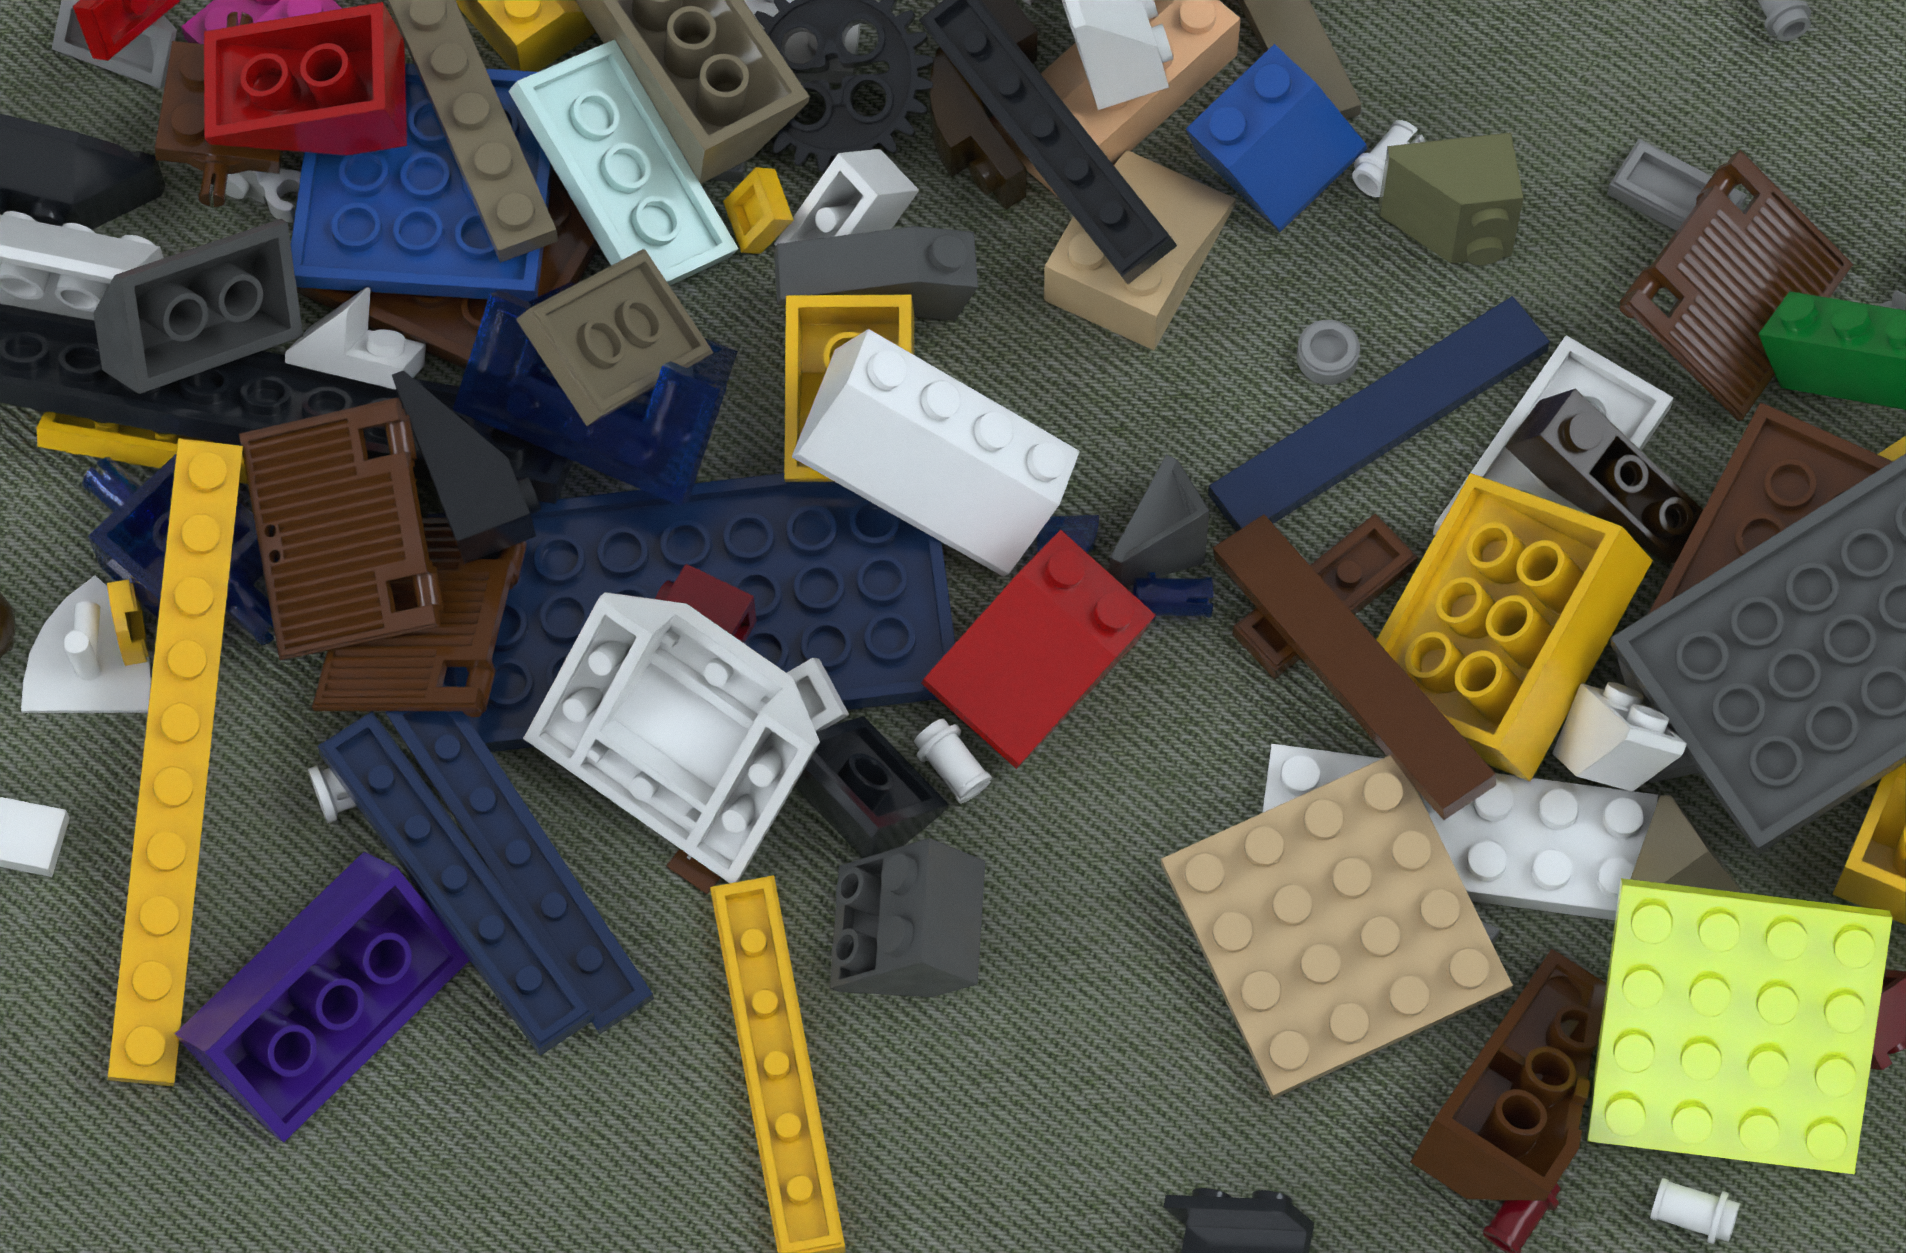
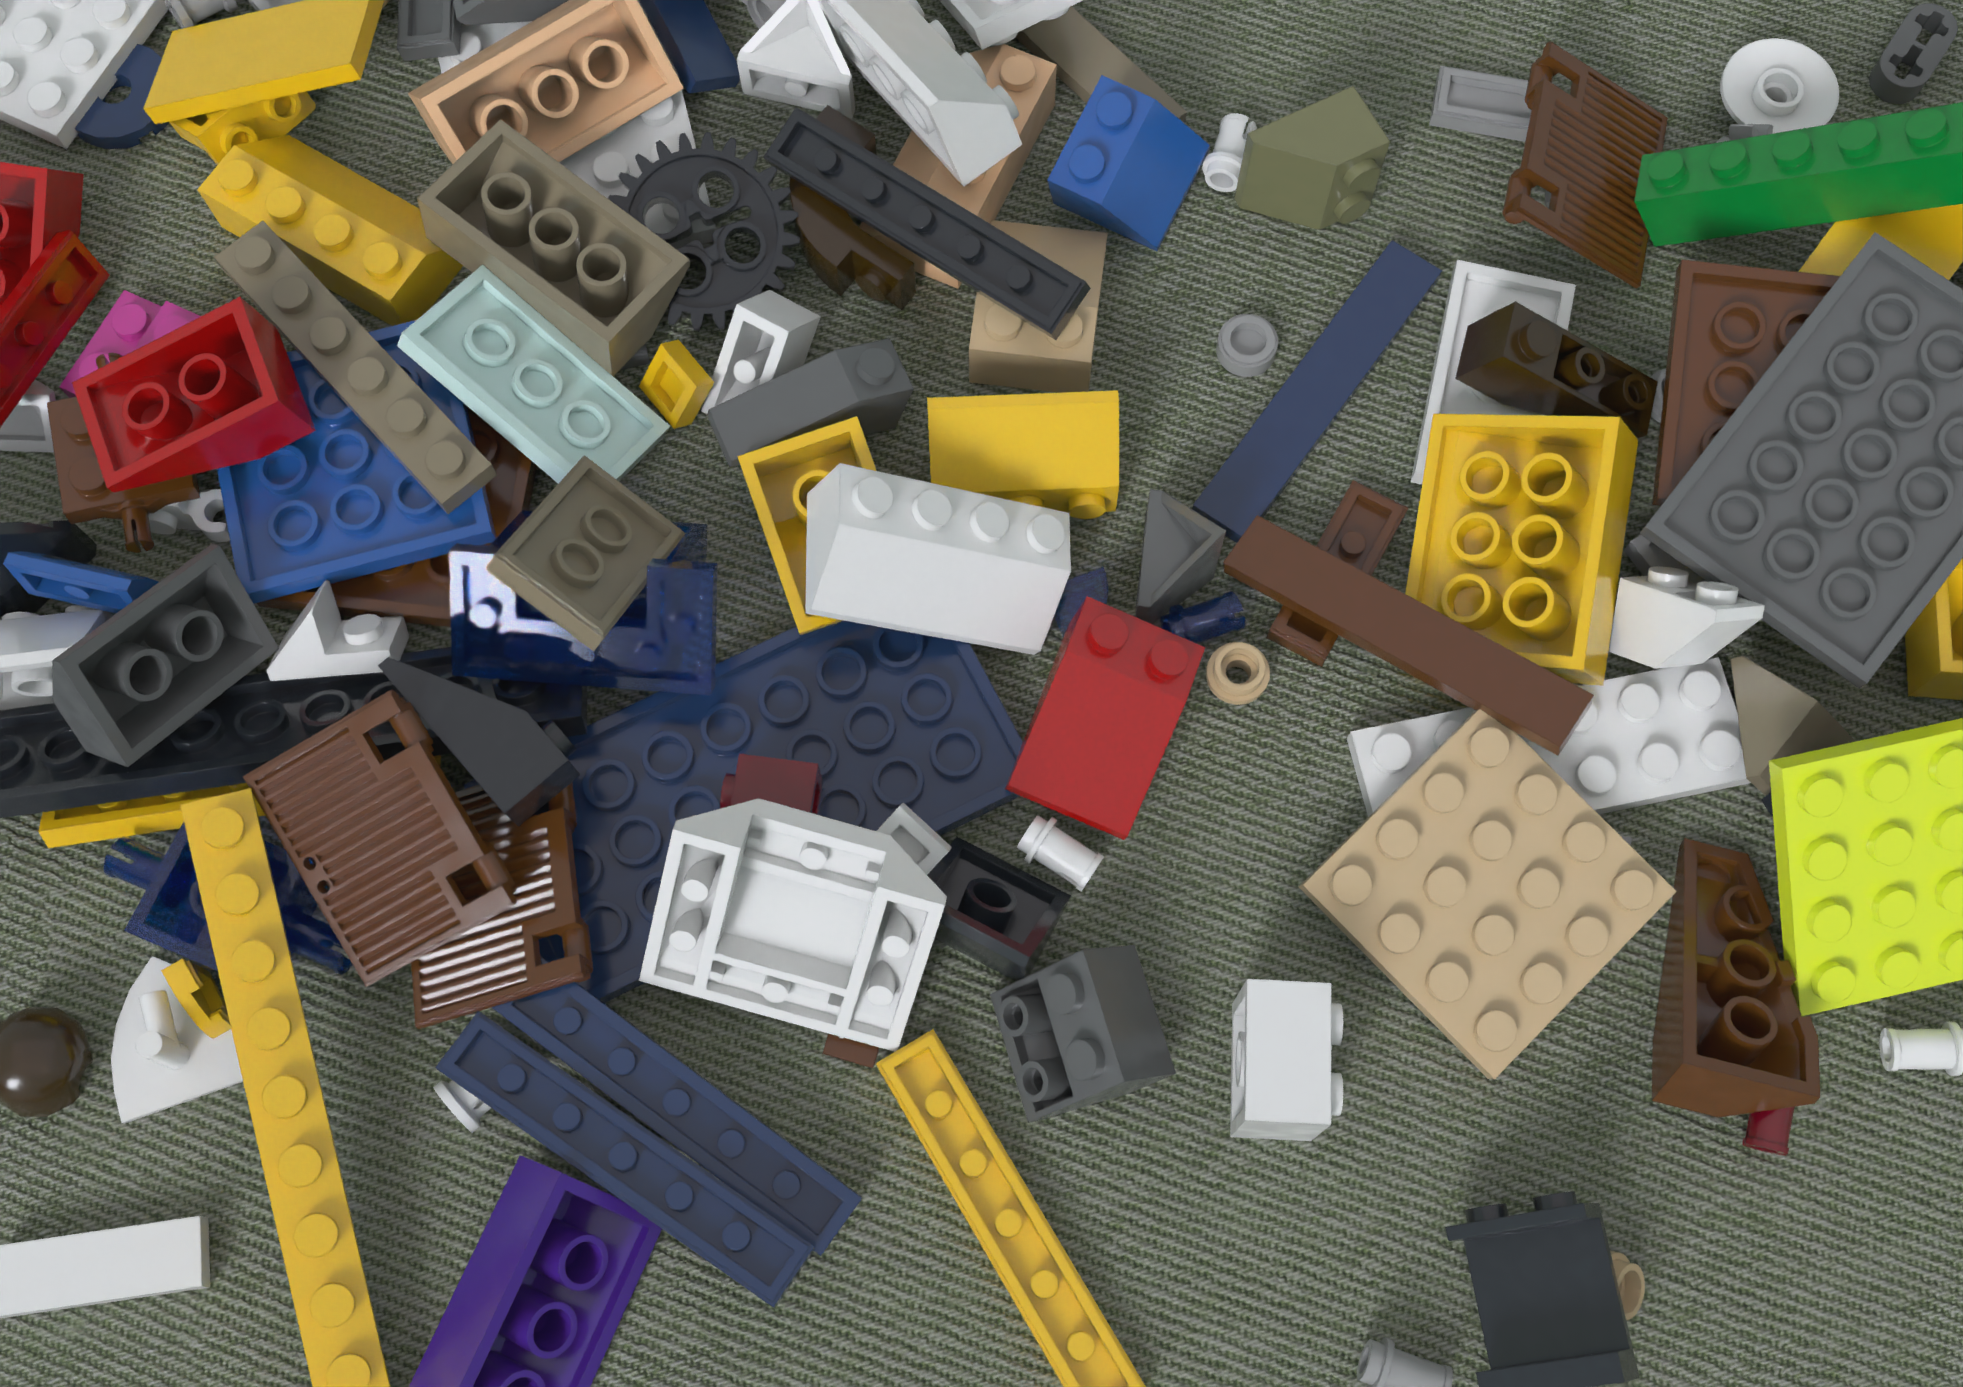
camera: 20 degrees left, 5 degrees up
(146, 216) = (76, 581): none -> blue slope
(1066, 380) = (1030, 448): none -> yellow slope
(1074, 1003) = (1284, 1060): none -> white brick
(1191, 639) = (1242, 656): none -> tan plate

